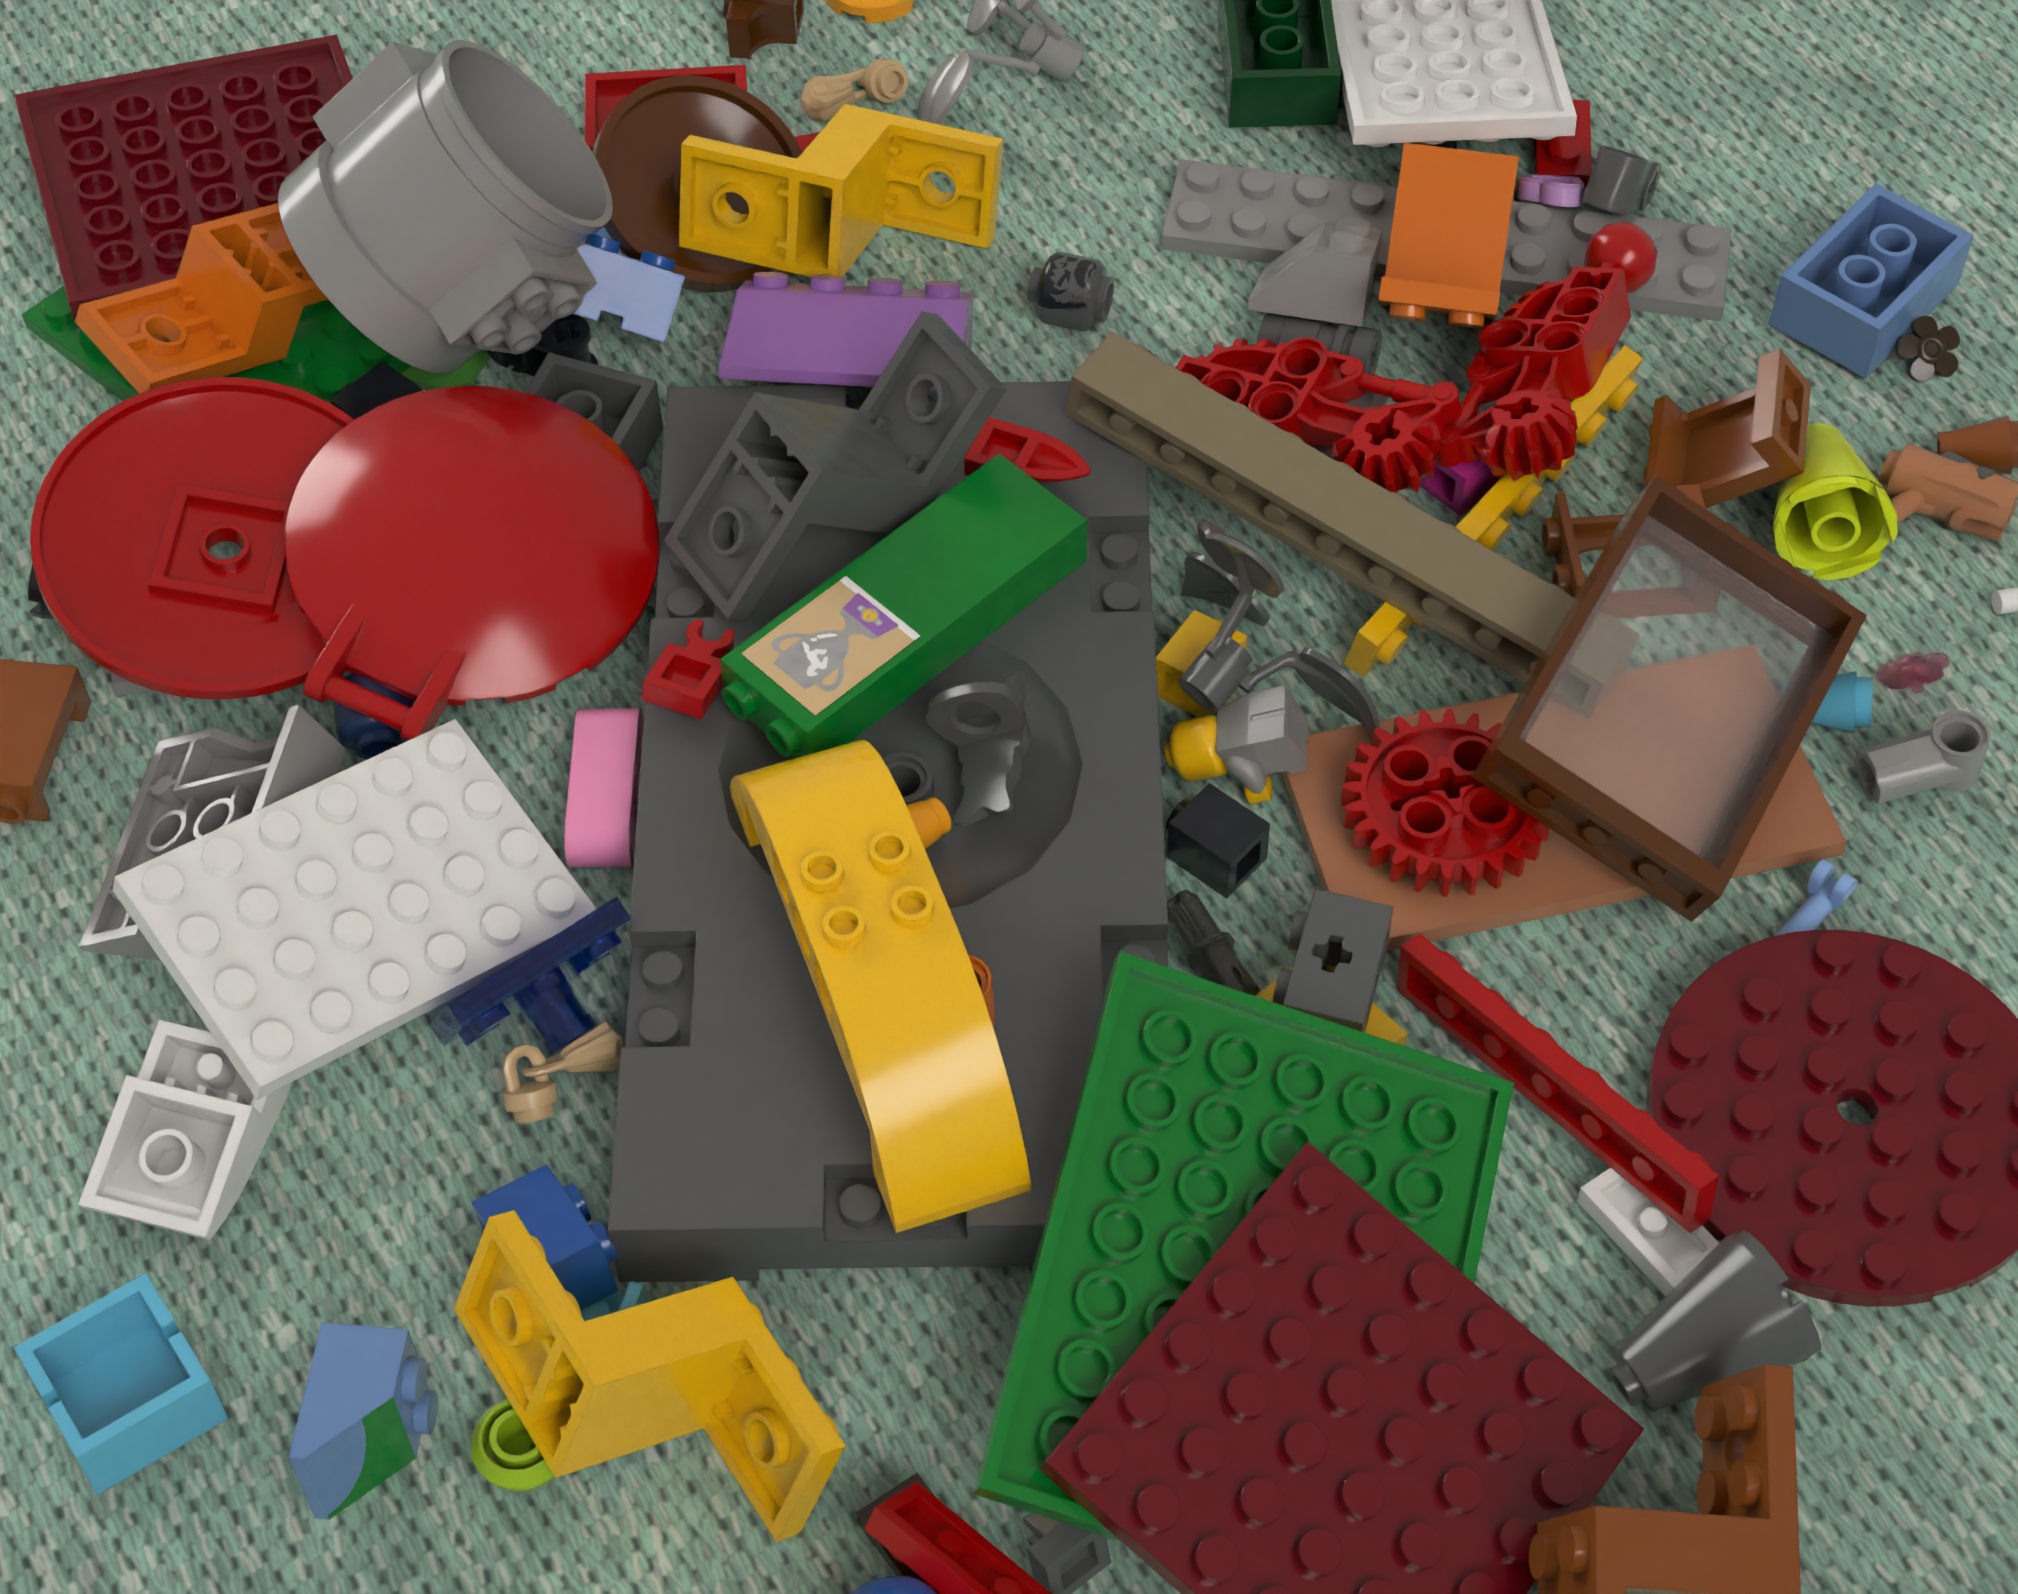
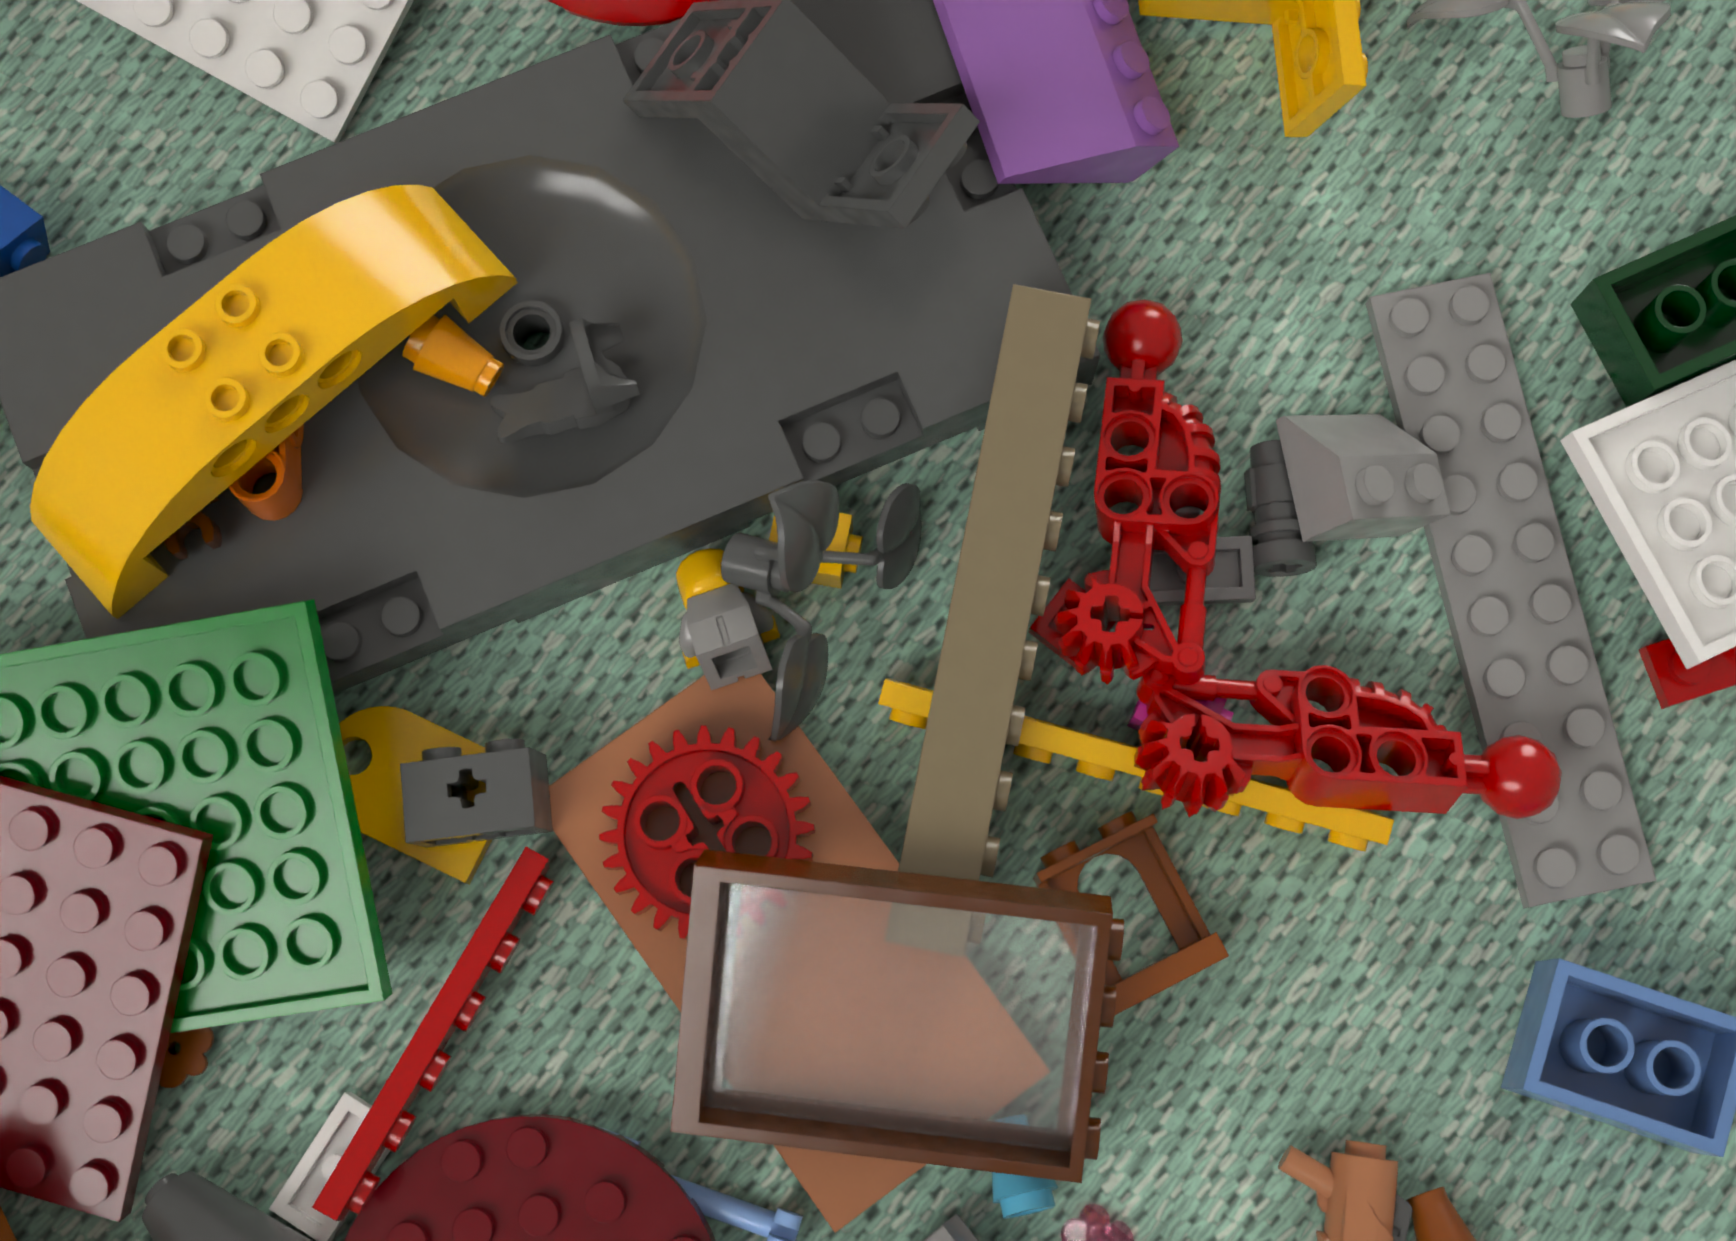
camera: 70 degrees right, 25 degrees up
(534, 1099) = (133, 175): tan piece -> none
(538, 985) = (214, 119): clear blue plate -> none
(603, 788) = (457, 69): bright pink beam -> none
(690, 675) = (533, 96): red plate -> none
(903, 610) = (684, 251): green brick -> none
(1032, 451) = (924, 280): red plate -> none
(1071, 291) = (1247, 240): dark grey head -> none
(1207, 946) = (491, 674): clear smoke axle -> none
(1217, 839) = (609, 634): black brick -> none
(1449, 235) = (1460, 586): orange bracket -> none
(1551, 190) = (1623, 672): lavender tile -> none
(1621, 181) = (1655, 740): dark grey piece -> none
(1737, 440) = (1305, 969): dark orange panel -> none
(1833, 512) = (1279, 1094): neon yellow cone -> none
(1929, 349) = (1567, 1146): dark brown plant -> none

